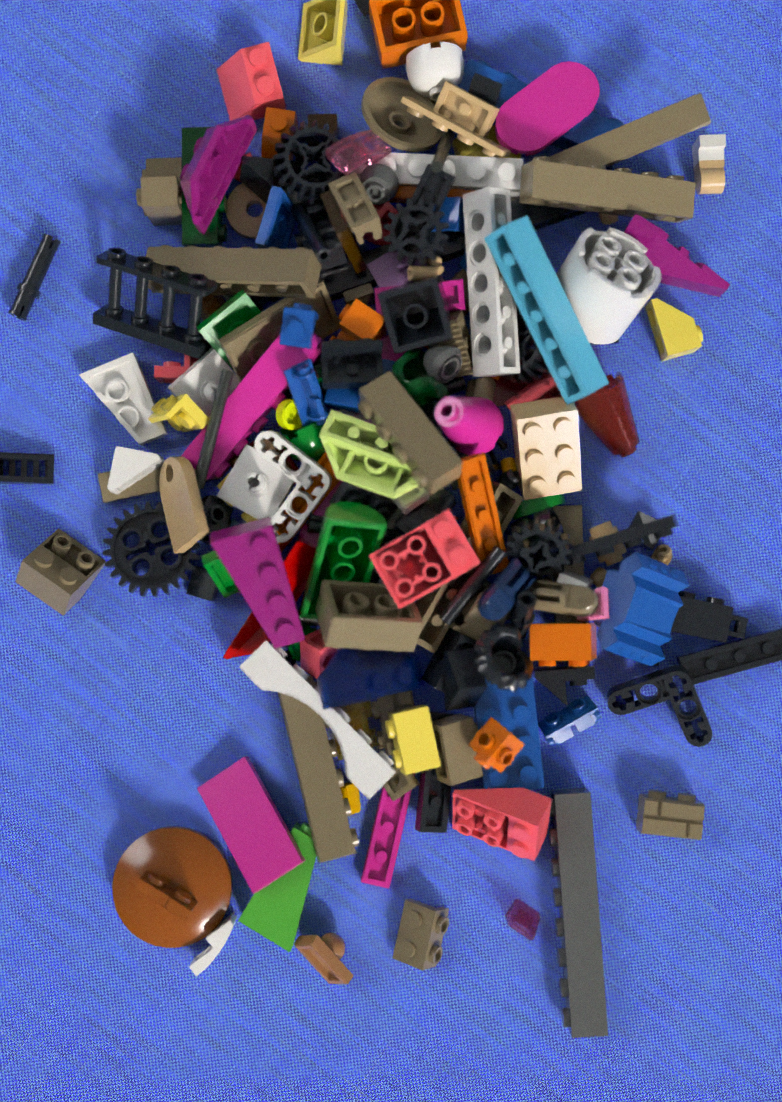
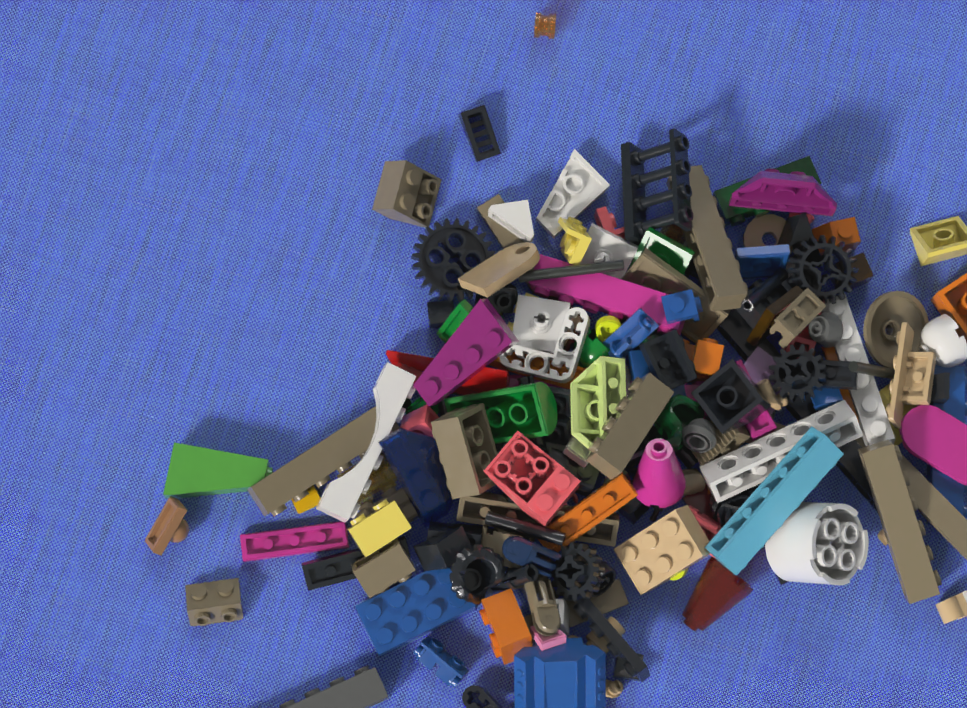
camera: 60 degrees right, 10 degrees down
(34, 277) = (640, 84): black pin -> none
(161, 191) = (750, 157): dark tan brick -> none
(172, 887) = (179, 380): dark orange bracket -> none
(217, 940) = (151, 434): white slope -> none
(251, 82) = (871, 198): coral slope -> none
(251, 824) = (256, 424): dark pink tile -> none
(357, 149) = (845, 300): clear pink slope -> none
(363, 293) = (730, 350): dark tan tile -> none
(400, 784) = (336, 533): dark tan tile -> none
(495, 746) = (400, 594): orange brick -> none
(503, 818) = (339, 631): coral slope -> none
(510, 476) = (626, 530): black arm -> none
(523, 919) = (258, 683): clear pink slope -> none
(535, 505) = (612, 559): green beam -> none
(554, 679) = (471, 634): black slope -> none
(673, 330) = (808, 626): light yellow slope -> none
(675, 262) = (862, 599): magenta wedge -> none

